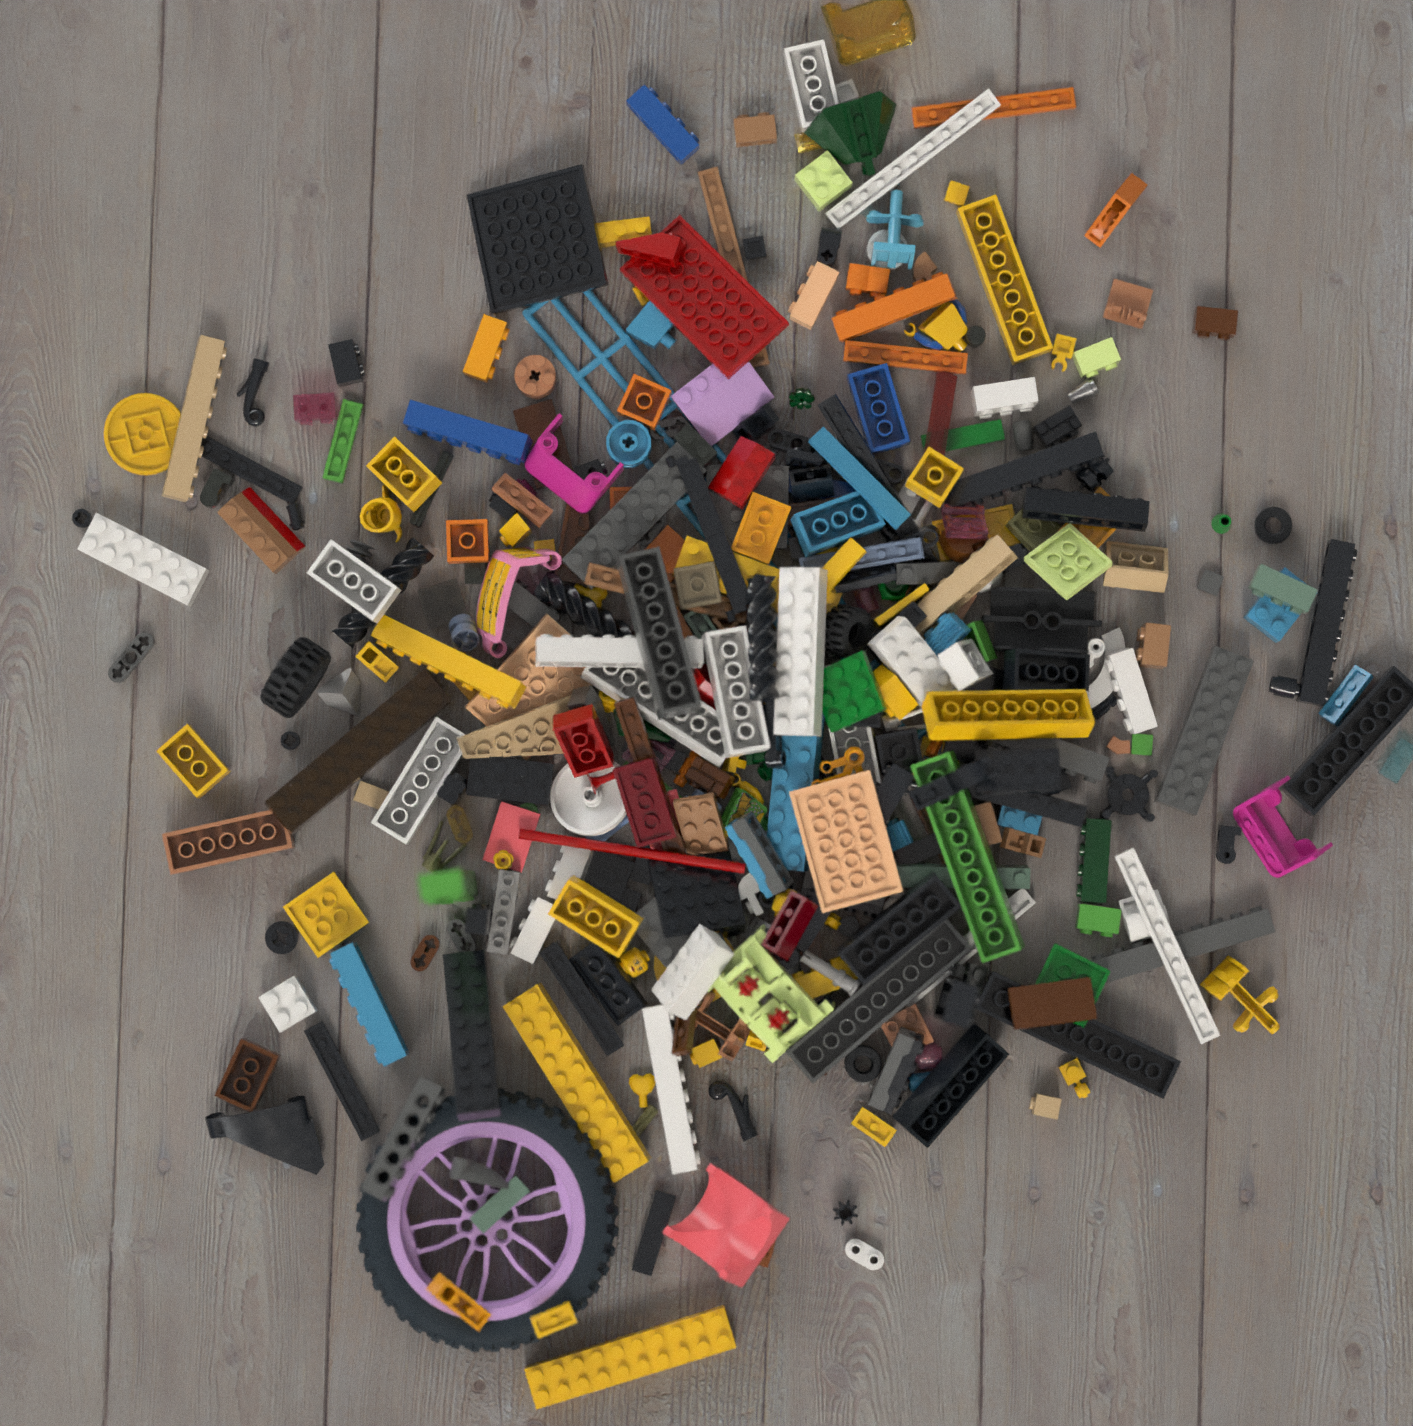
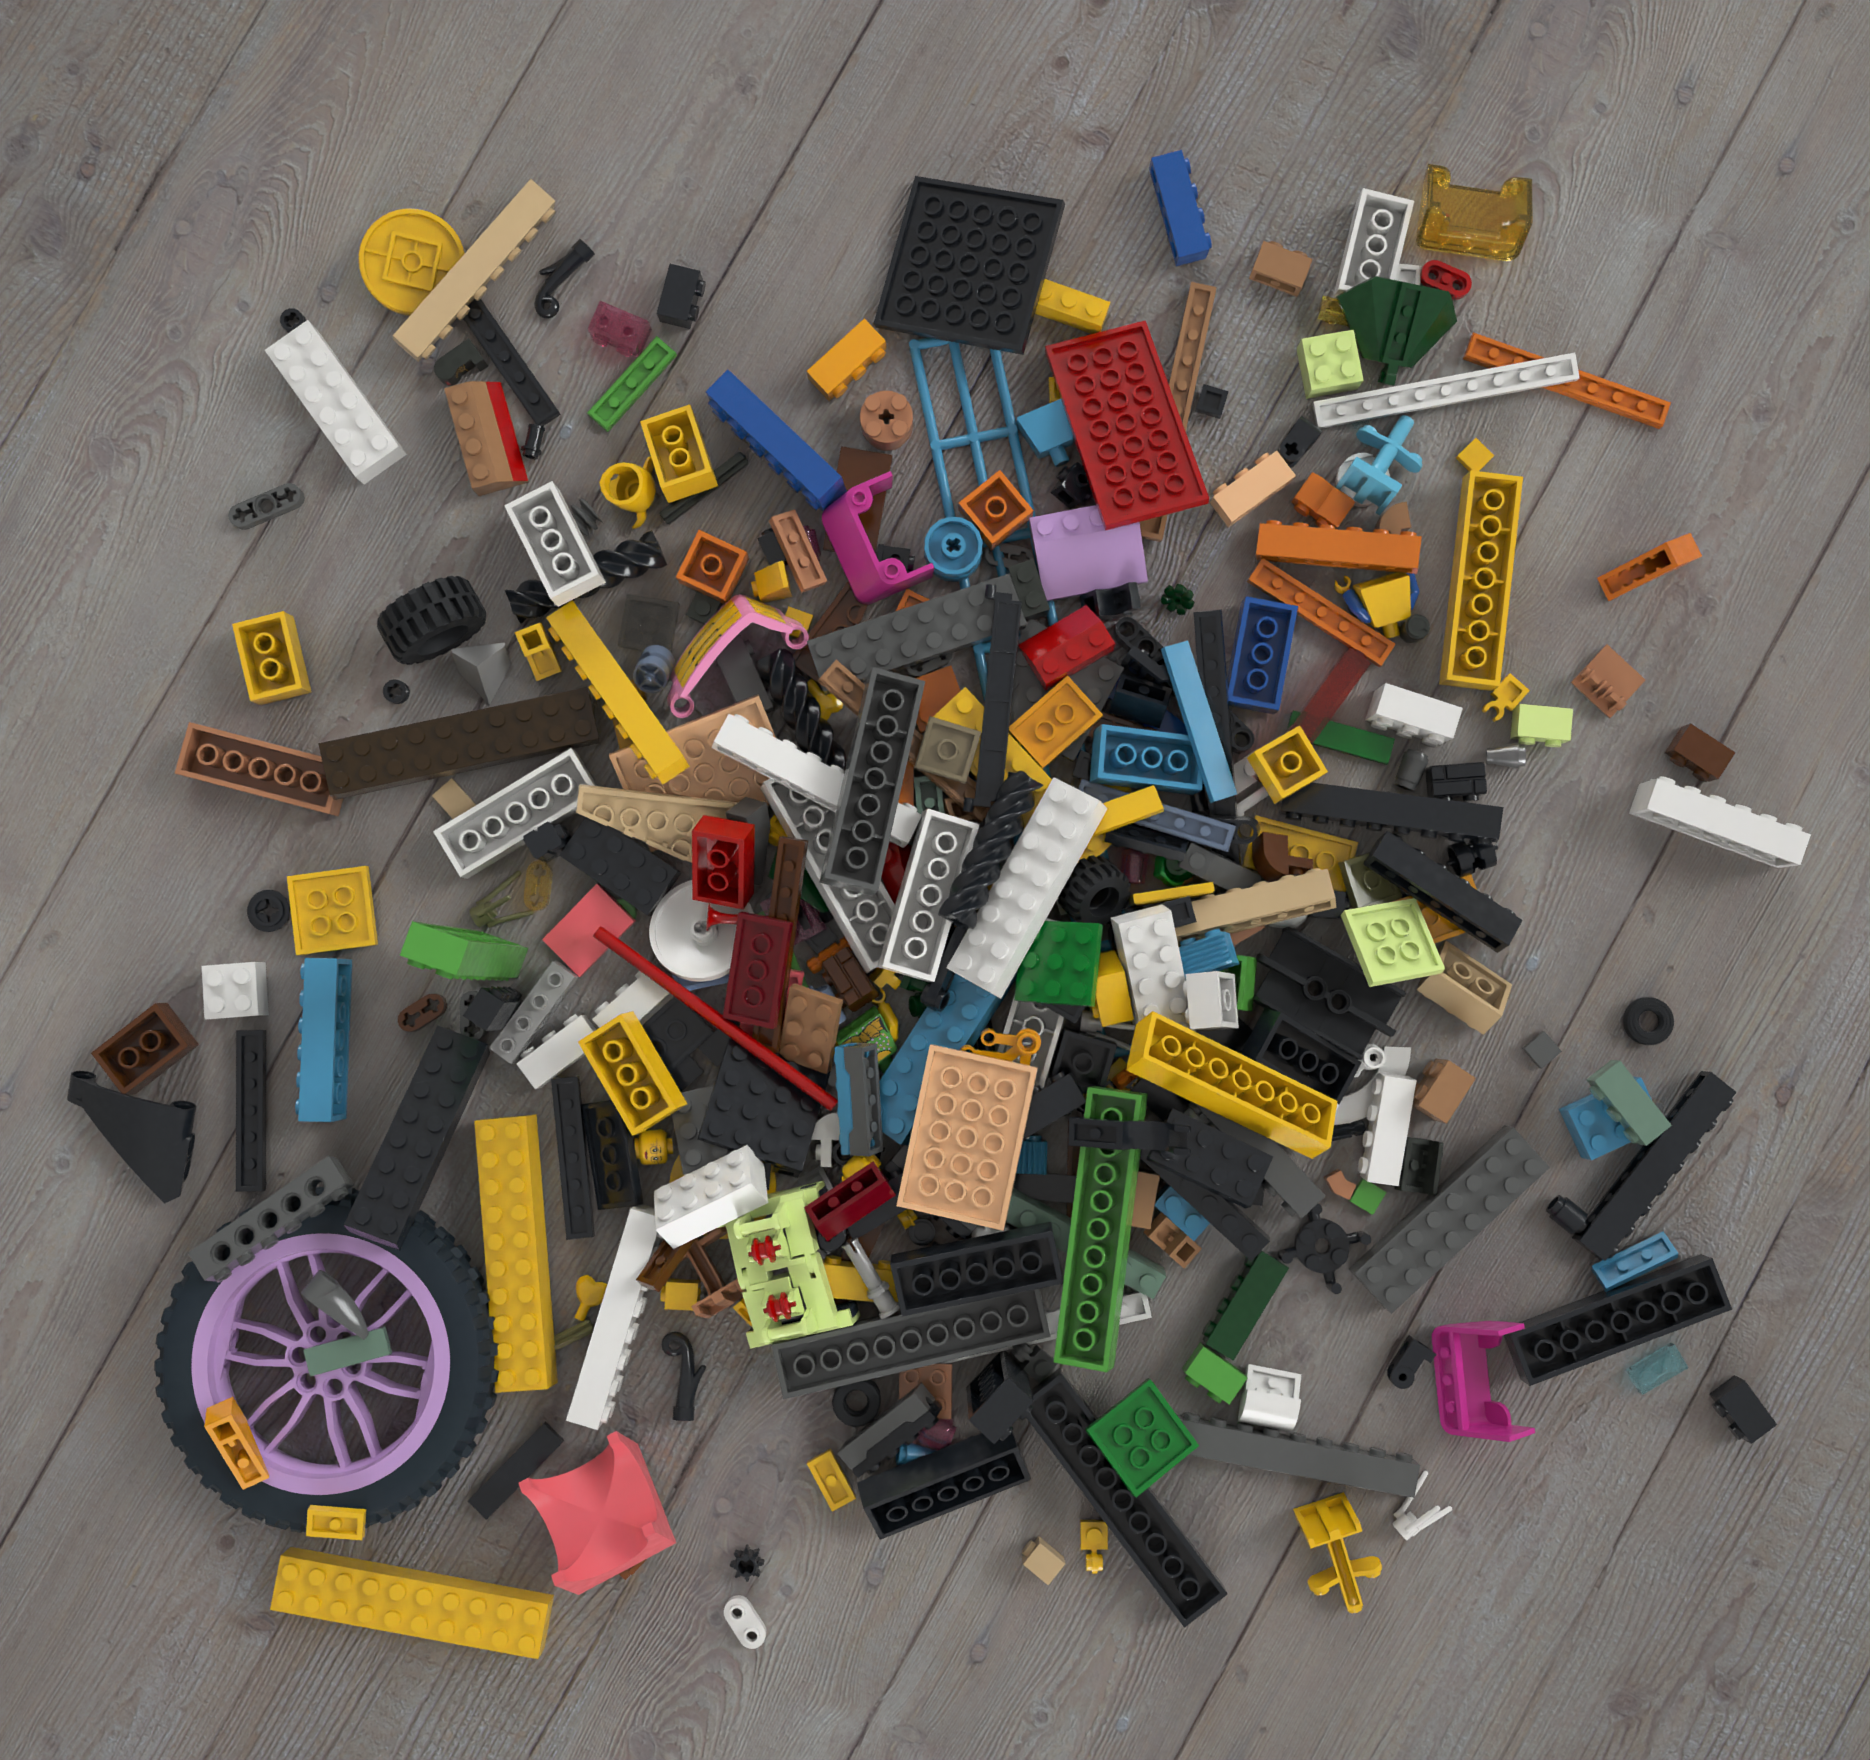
camera: 30 degrees right, 0 degrees up
(498, 860) = (557, 952): yellow plate -> none
(656, 248) = (1097, 340): red slope -> none
(688, 357) = (1072, 485): none -> black brick
(873, 80) = (1445, 277): none -> red plate
(964, 526) = (1291, 840): clear pink plate -> none
(1052, 1003) = (1111, 1451): reddish brown tile -> none
(1166, 705) = (1421, 1166): none -> pearl dark grey bracket
(1167, 945) = (1280, 1449): white plate -> none
(1218, 526) = (1586, 985): green cone -> none
(1251, 365) = (1720, 823): none -> white brick
(1283, 953) = (1407, 1523): none -> white plant

